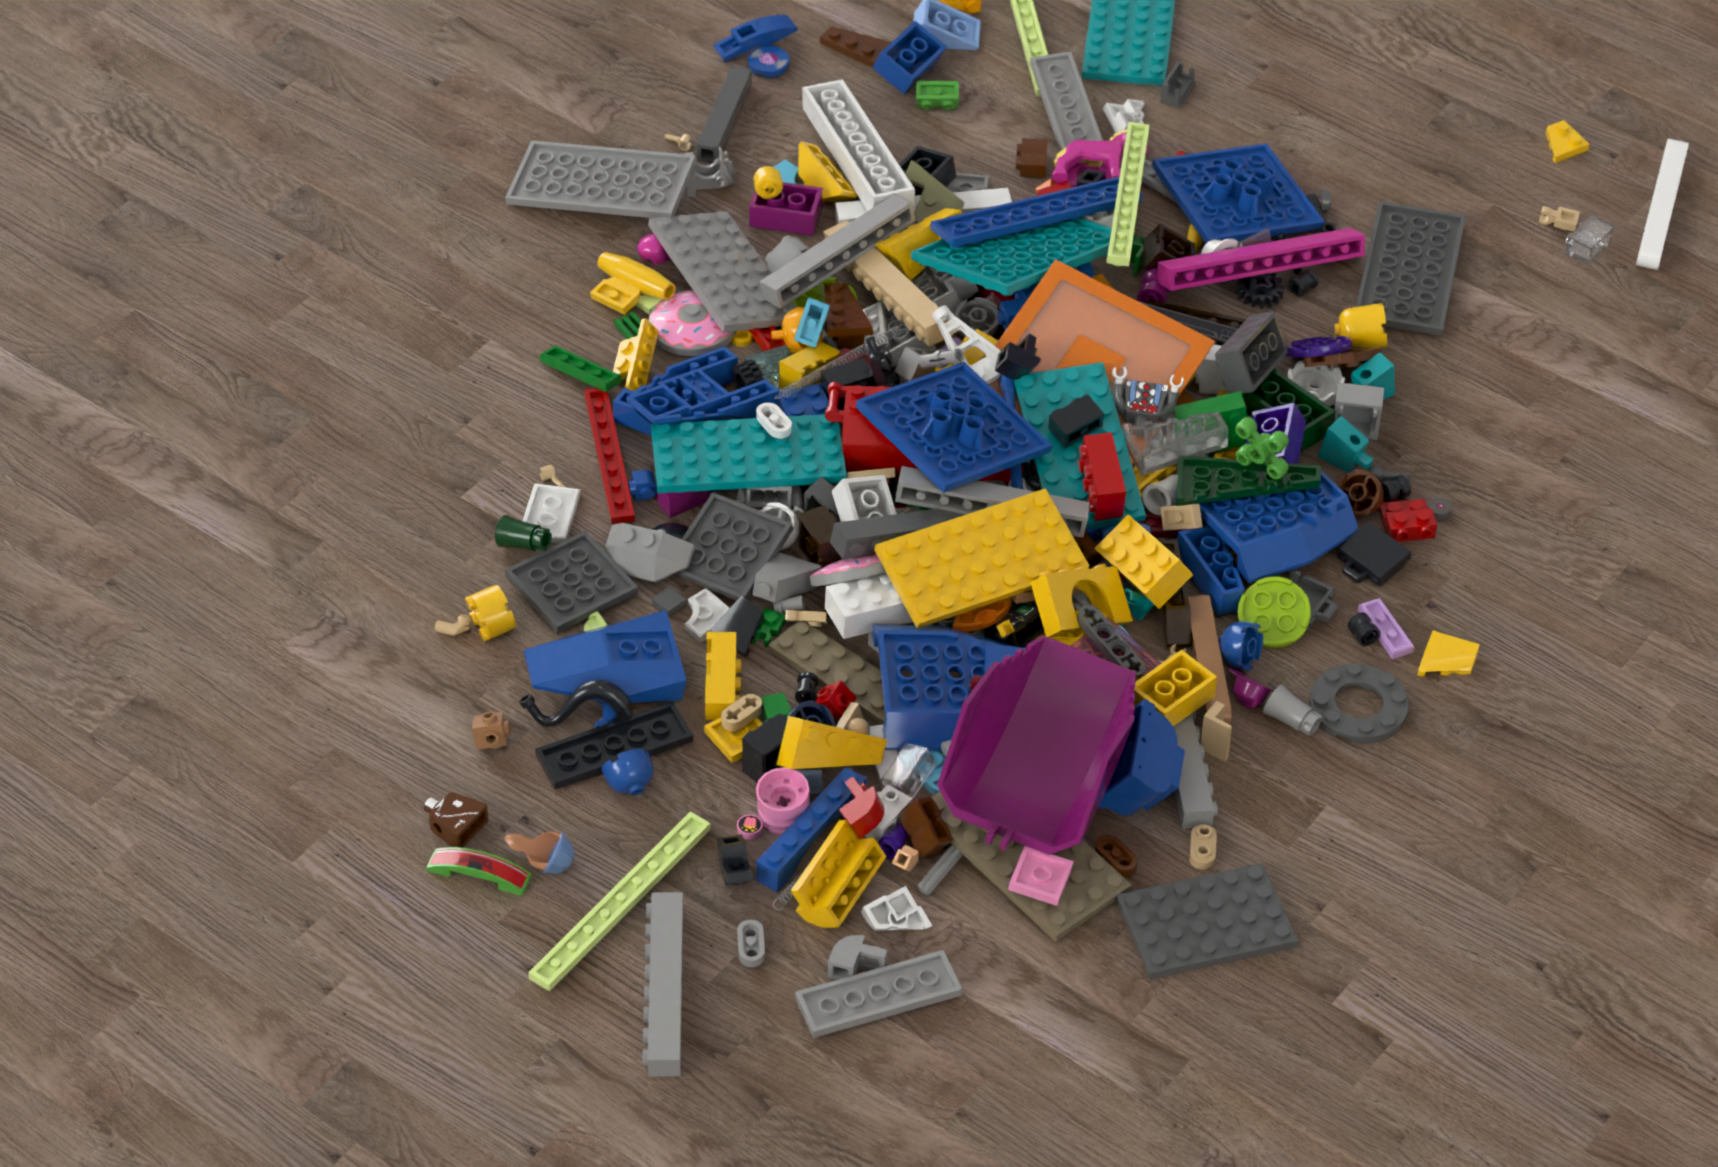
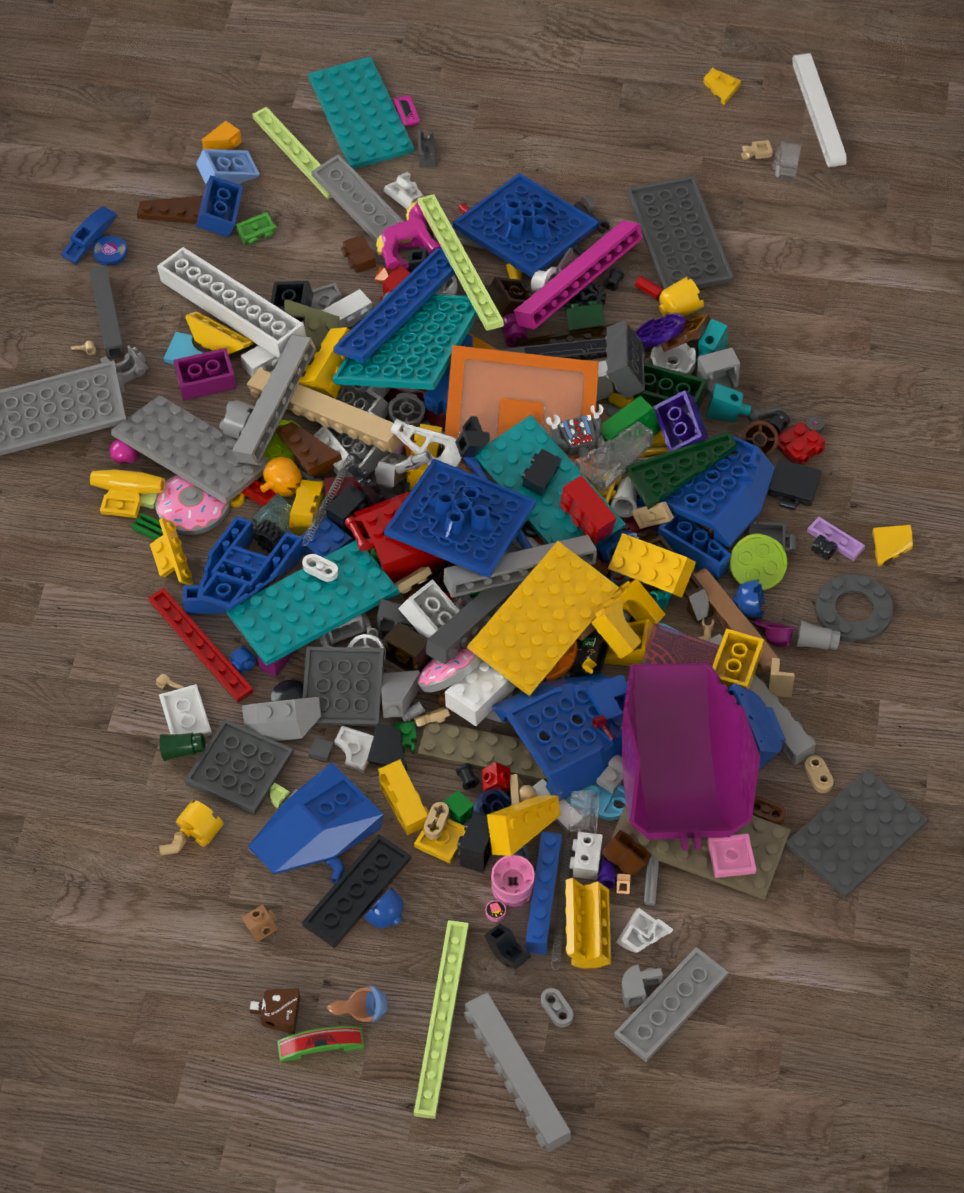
camera: 25 degrees left, 10 degrees up
(580, 368) = (133, 580): green tile -> none
(594, 689) = (325, 854): black animal -> none
(768, 182) = (186, 362): yellow head -> none
(812, 322) = (295, 470): medium azure slope -> none
(865, 810) = (581, 862): brick -> none
(1114, 641) = (672, 641): dark grey beam -> none
(1181, 43) = (406, 111): none -> dark pink slope
(1240, 302) = (585, 316): none -> dark green brick
(1262, 448) = (689, 439): bright green gear -> none
(1335, 302) = (648, 287): none -> red cylinder

